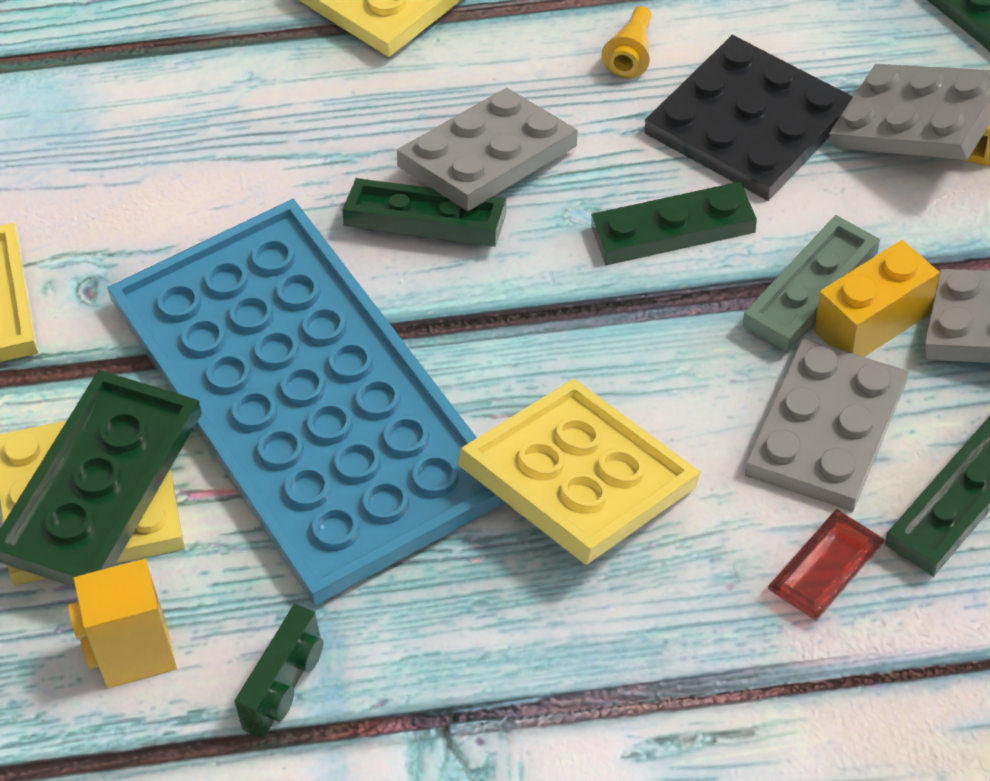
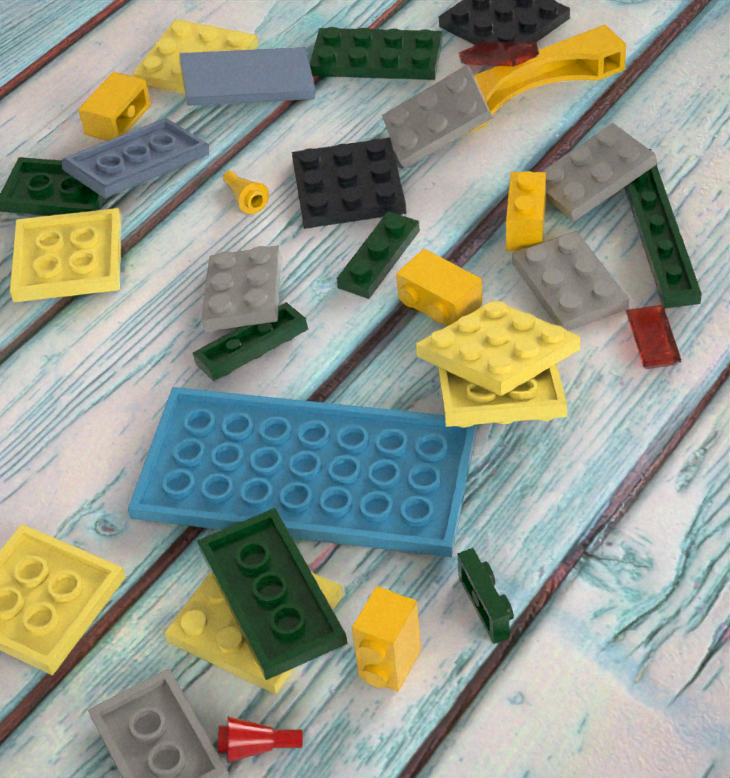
camera: 45 degrees left, 5 degrees down
(631, 429) = (498, 347): none -> light yellow plate
(670, 313) = (438, 288): none -> yellow brick
(791, 300) = (483, 228): sand green plate -> none

